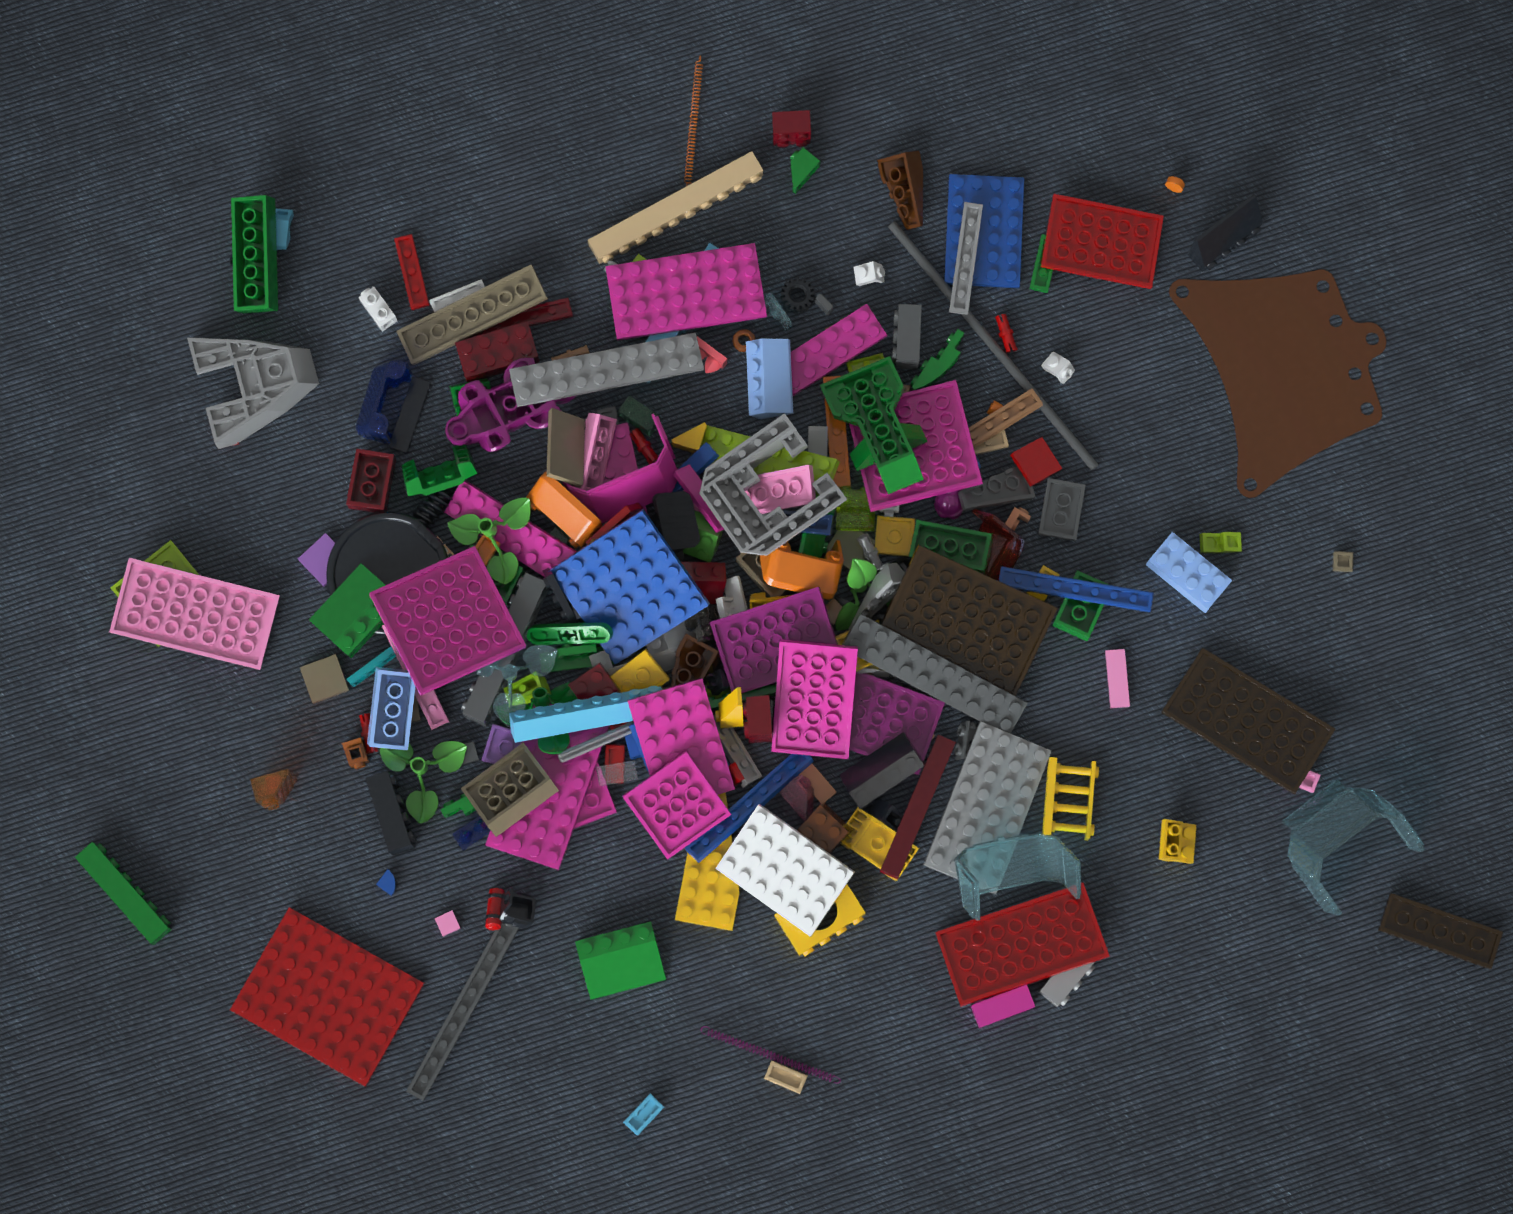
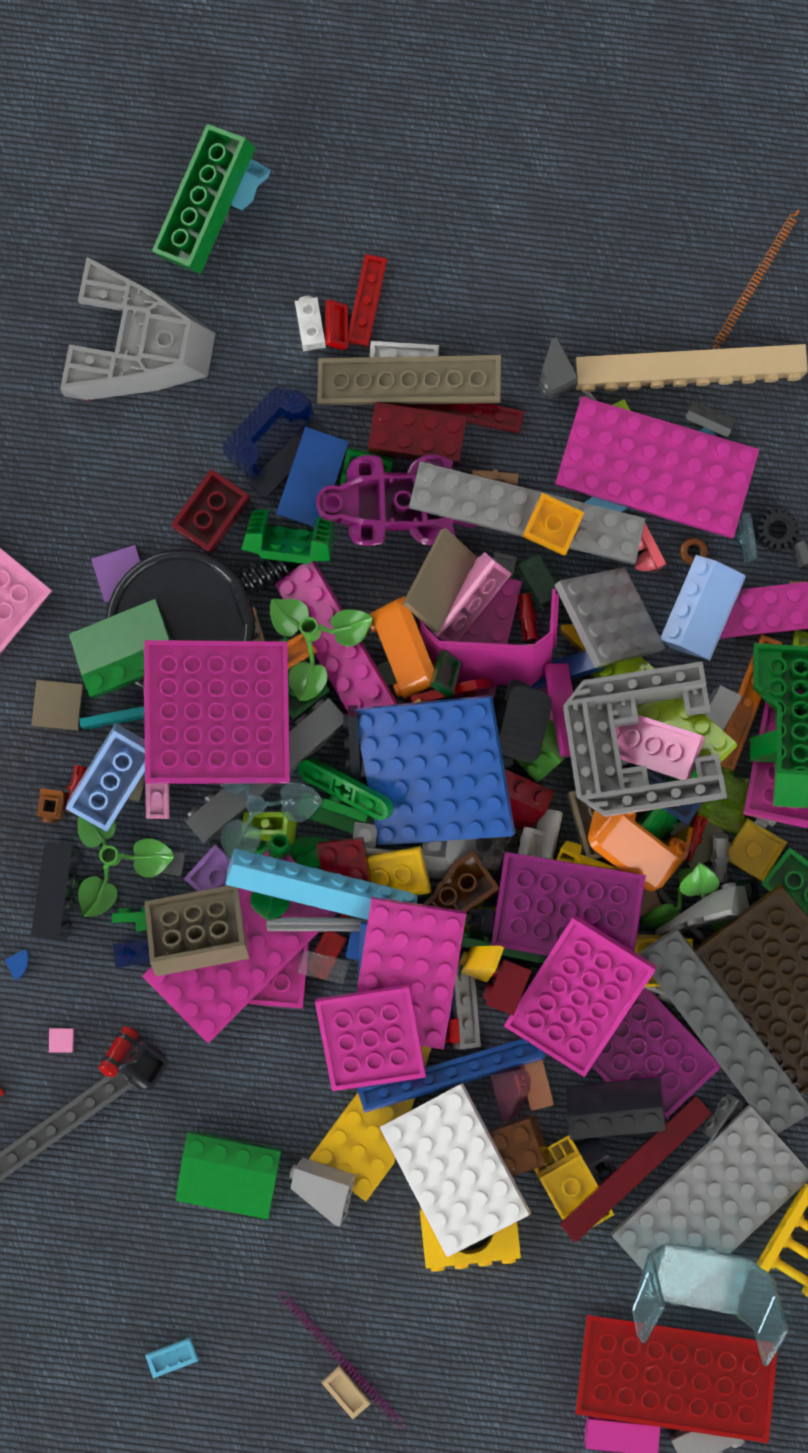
camera: 25 degrees right, 5 degrees up
(397, 300) = (336, 324): none -> red tile
(432, 412) = (313, 468): none -> blue tile
(579, 258) = (557, 372): none -> dark grey slope
(602, 511) = (446, 673): none -> dark green tile
(629, 367) = (553, 524): none -> light orange plate
(696, 934) = (323, 1188): none -> light grey slope
(703, 415) = (609, 617): none -> light grey plate
(708, 238) = (710, 418): none -> dark grey tile
(843, 536) = (698, 825): none -> red pin

